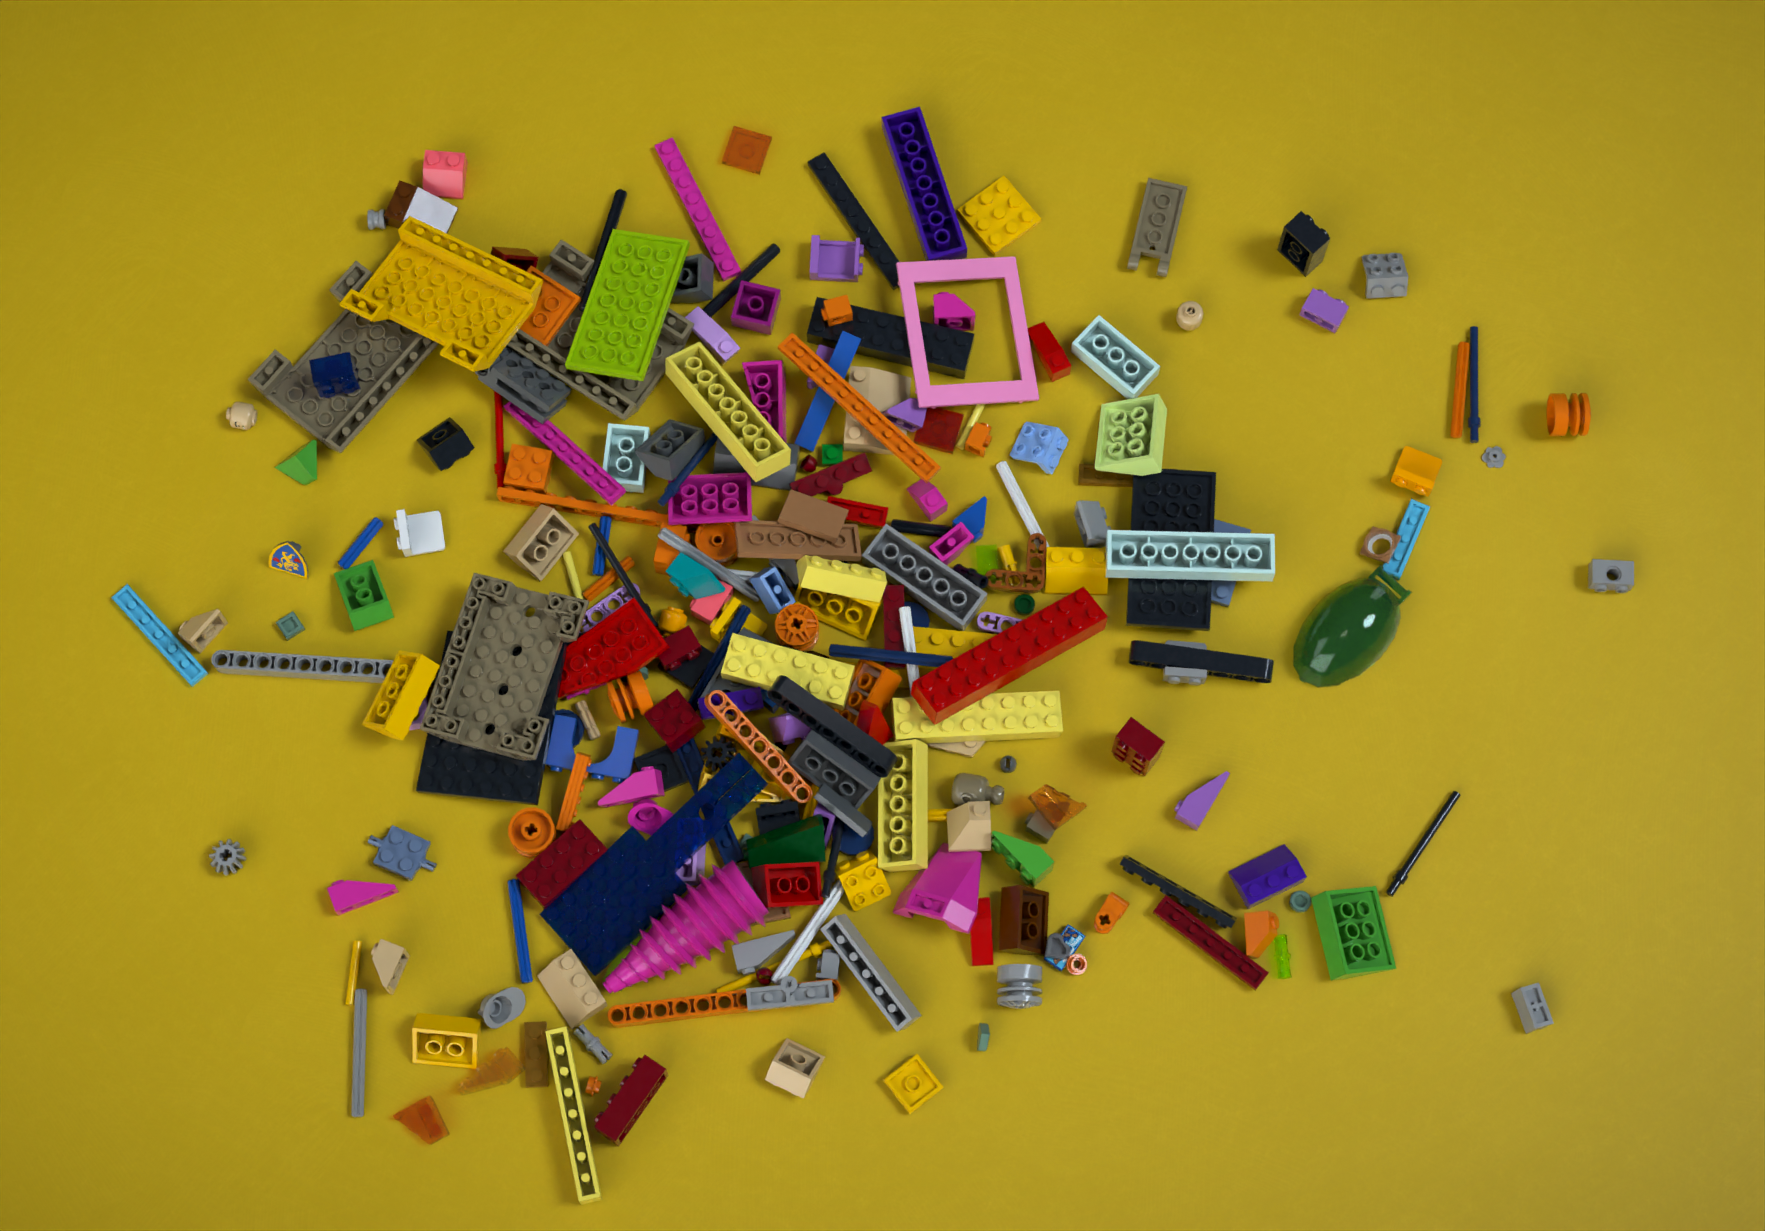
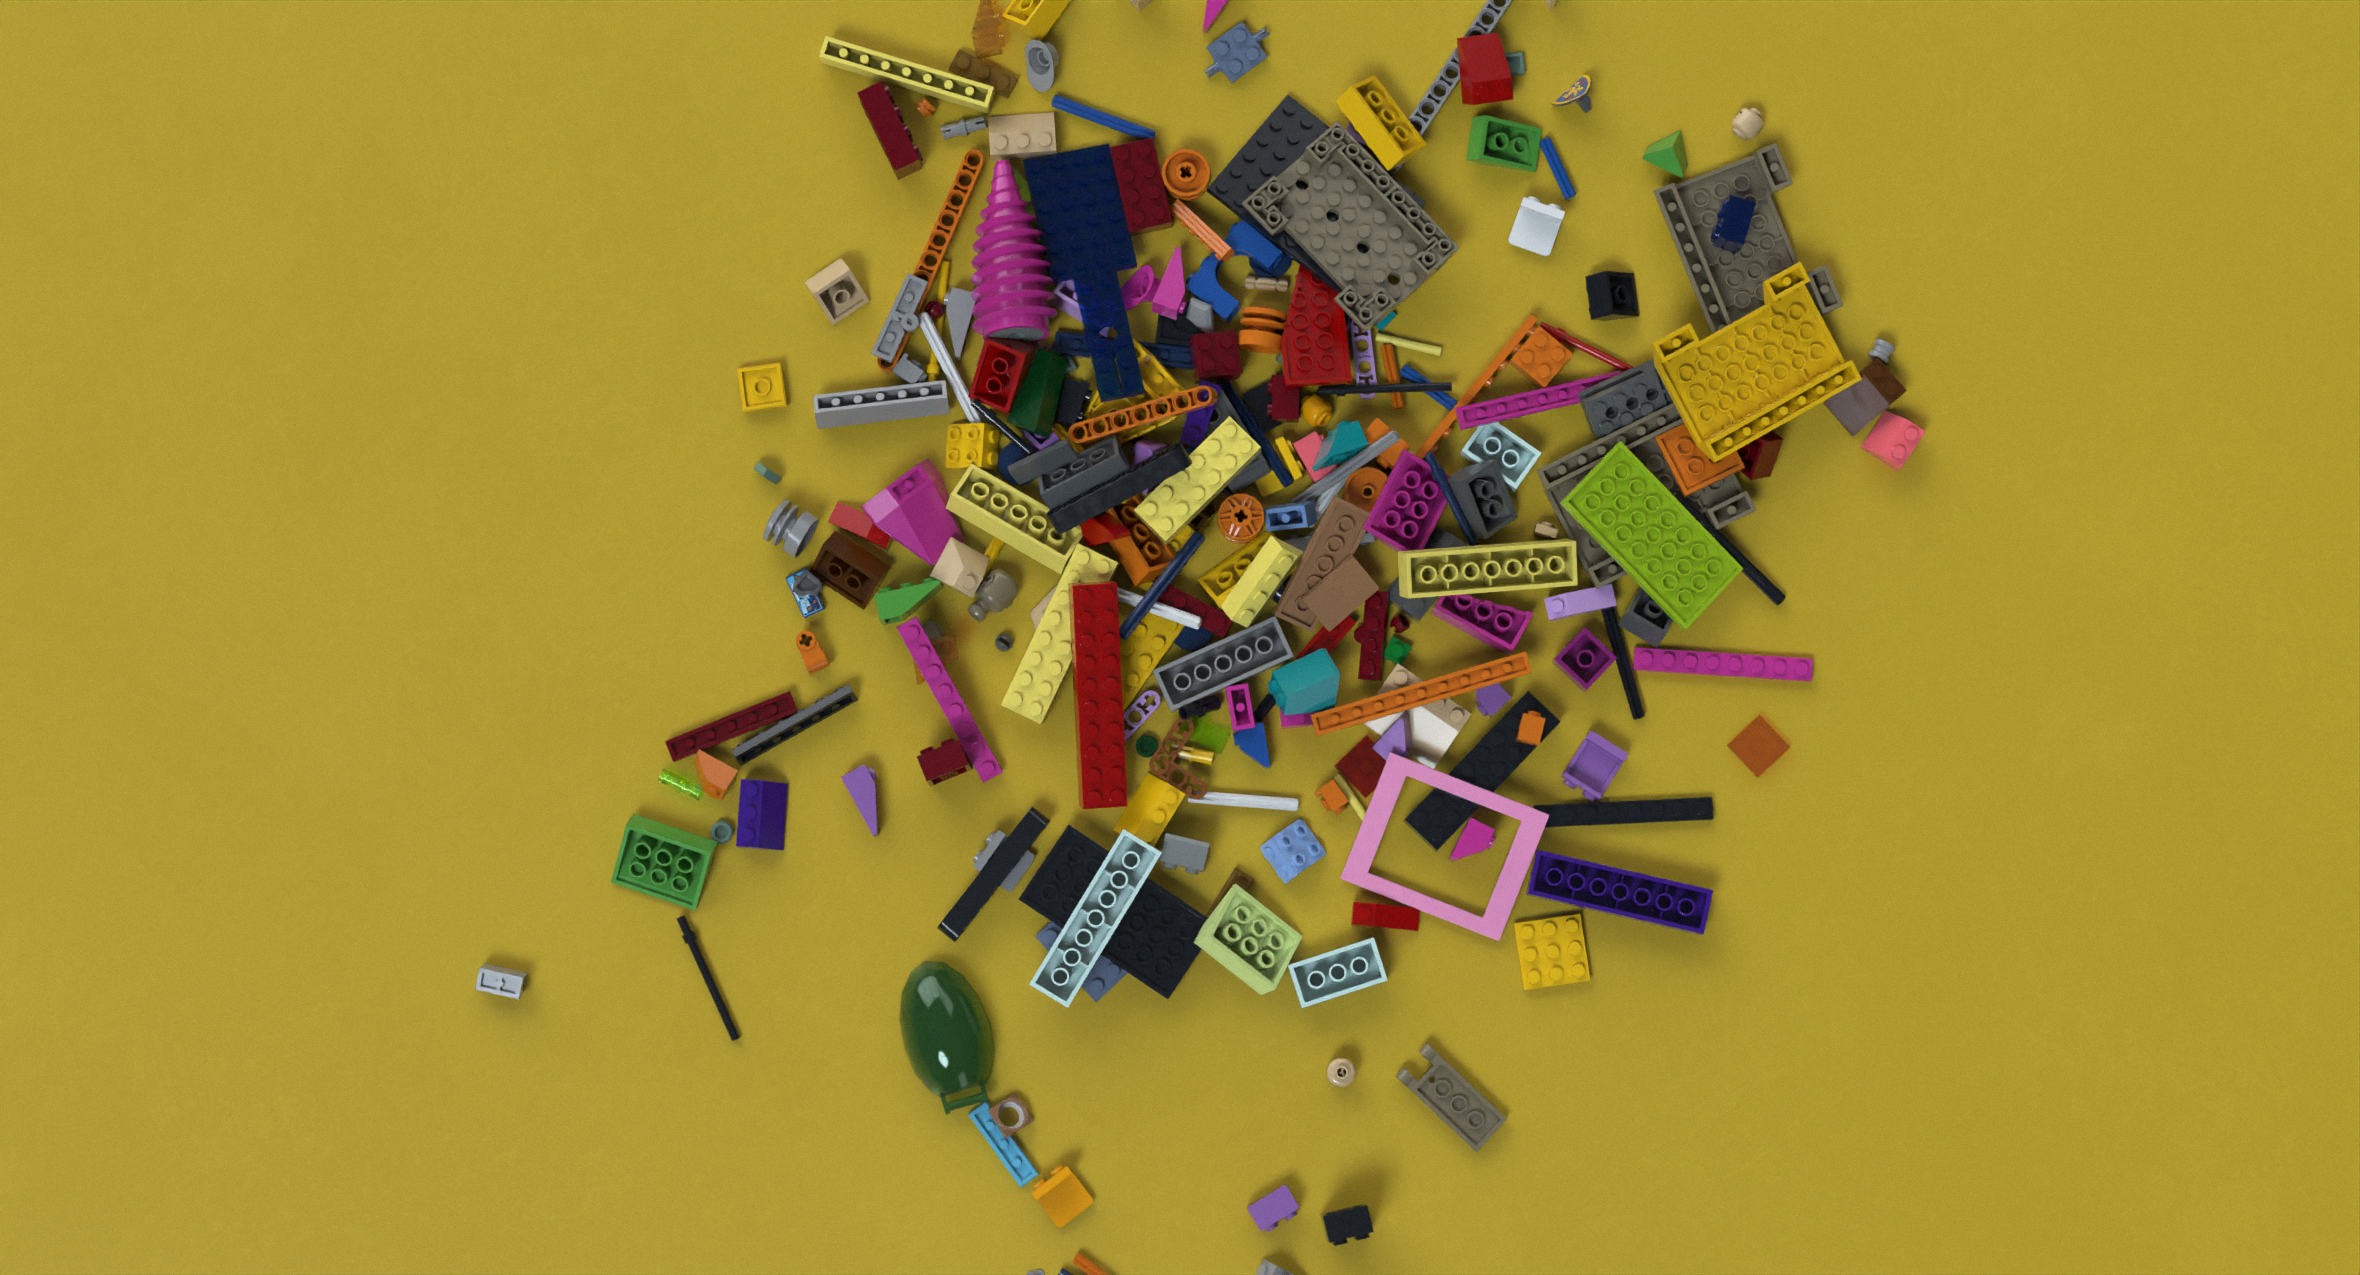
camera: 120 degrees right, 10 degrees up
(310, 639) = (1483, 70): none -> red slope
(541, 542) = (1463, 332): tan slope -> none
(646, 751) = (1201, 315): none -> light grey piece
(668, 393) = (1545, 530): none -> tan plate
(721, 746) = (1158, 368): black gear -> none
(822, 401) = (1447, 663): blue tile -> none
(903, 500) = (1306, 684): none -> teal slope
(1082, 774) = (949, 699): none -> dark pink plate
(1082, 964) = (777, 594): orange plate -> none

